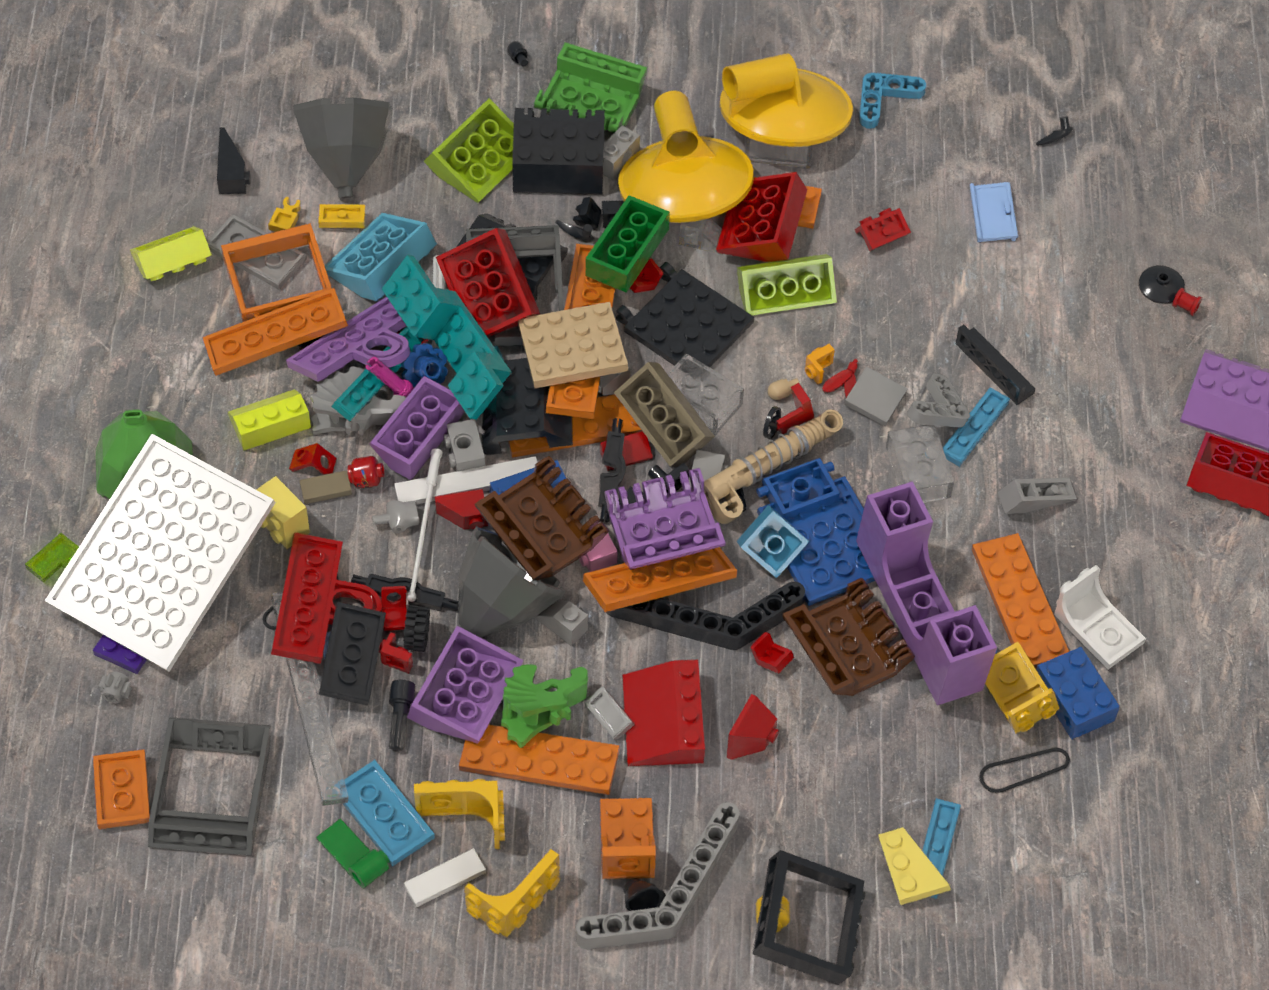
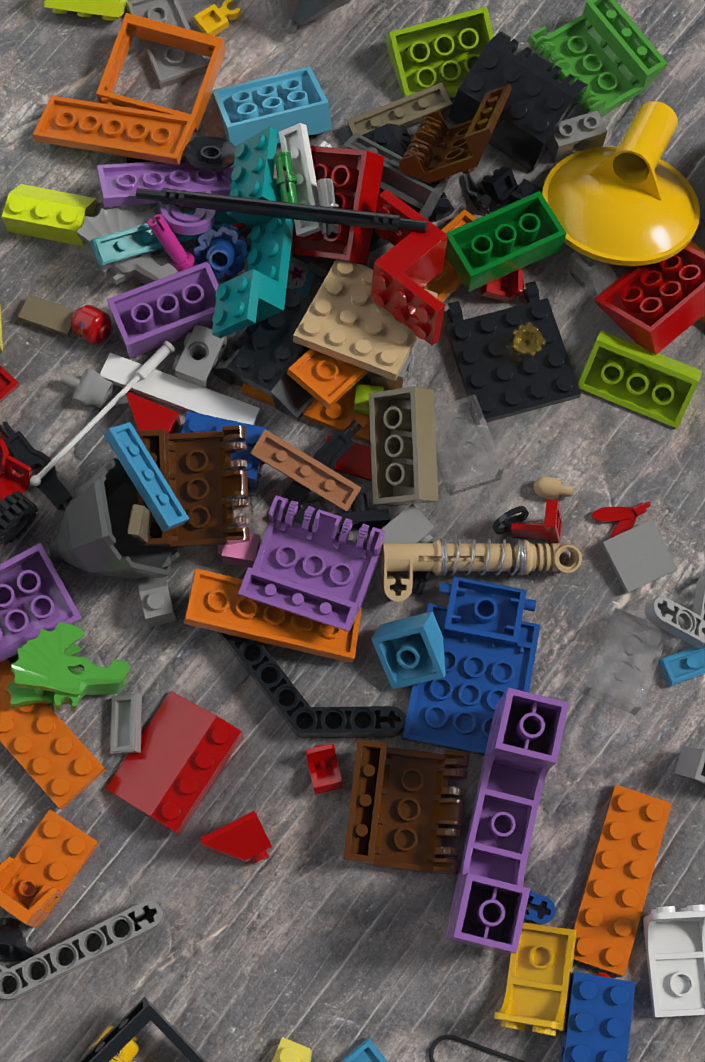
camera: 35 degrees right, 15 degrees up
(311, 456) = (51, 277): red bracket -> none
(341, 216) = (268, 48): yellow plate -> none
(365, 305) = (210, 153): none -> black dish
(448, 284) = (283, 163): none -> green pin
(456, 279) = (296, 141): none -> white plate
(459, 304) = (282, 210): none -> black axle
(479, 203) = (403, 111): none -> dark tan plate
(490, 284) = (327, 199): none -> light grey axle
(501, 523) = (146, 476): none -> dark azure plate
(530, 555) = (140, 523): none -> dark tan tile
(549, 195) = (443, 151): none -> reddish brown slope
(583, 299) = (408, 268): none -> red bracket
(606, 469) = (305, 470): none -> nougat plate
(610, 404) = (362, 397): none -> lime tile
(693, 296) = (531, 334): none -> clear yellow animal
(818, 361) = (608, 480): light orange bracket -> none

